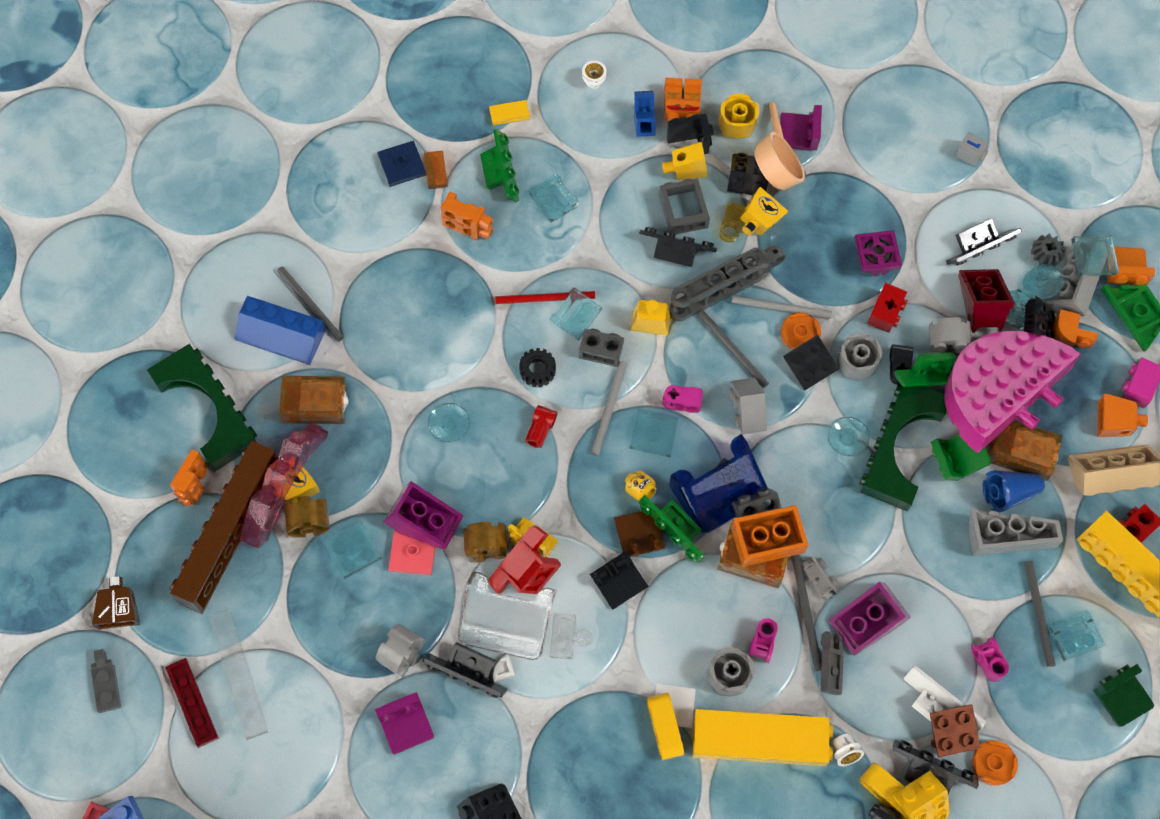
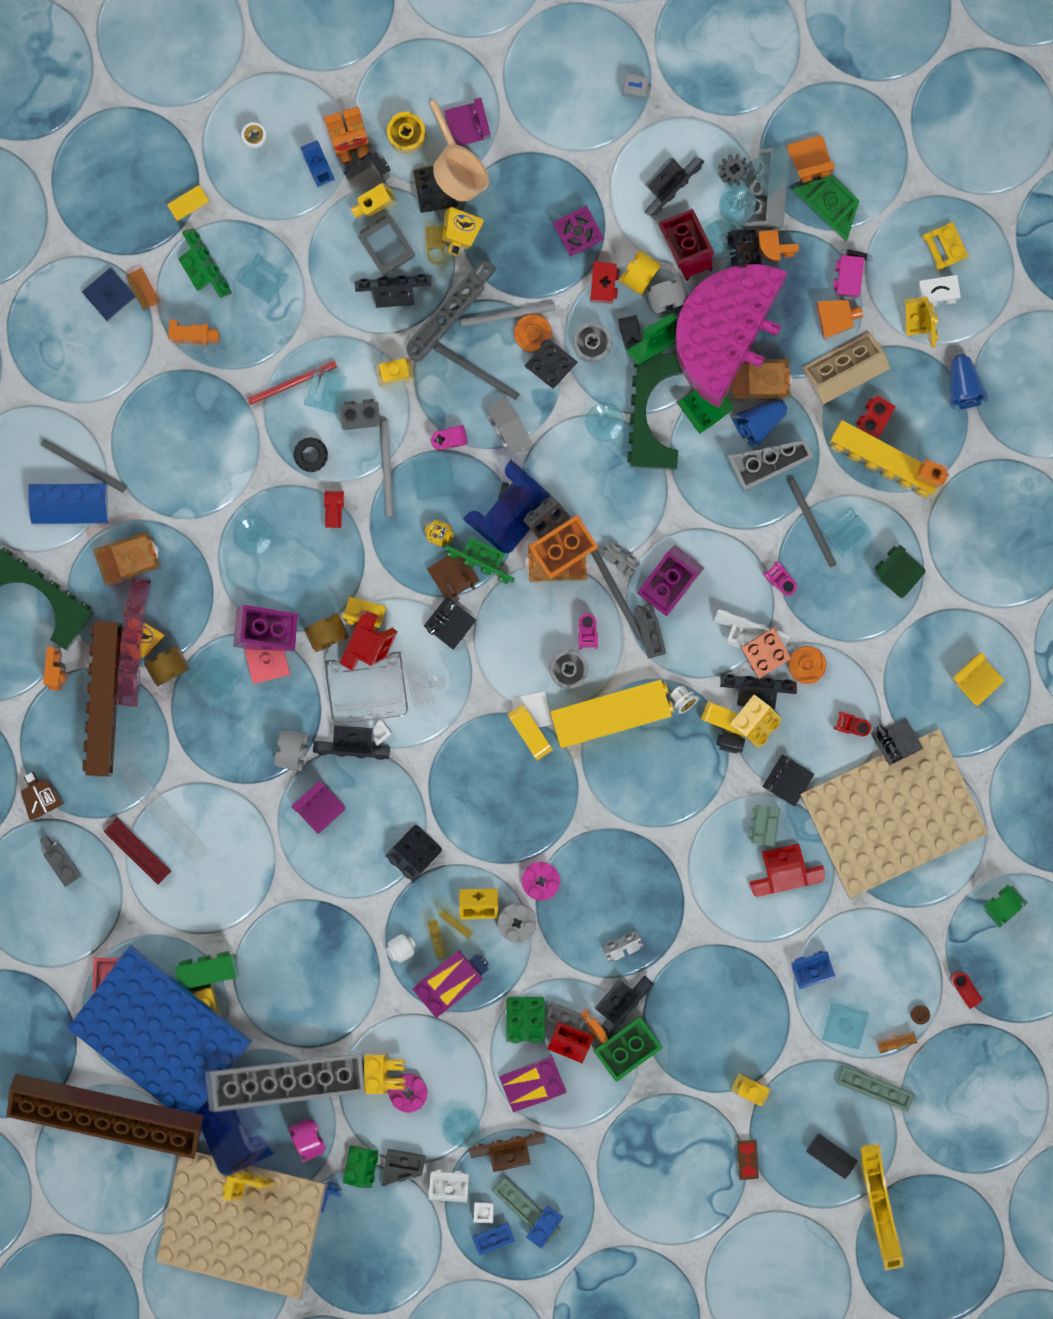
camera: 20 degrees left, 20 degrees up
(929, 307) = (640, 272): none -> yellow brick

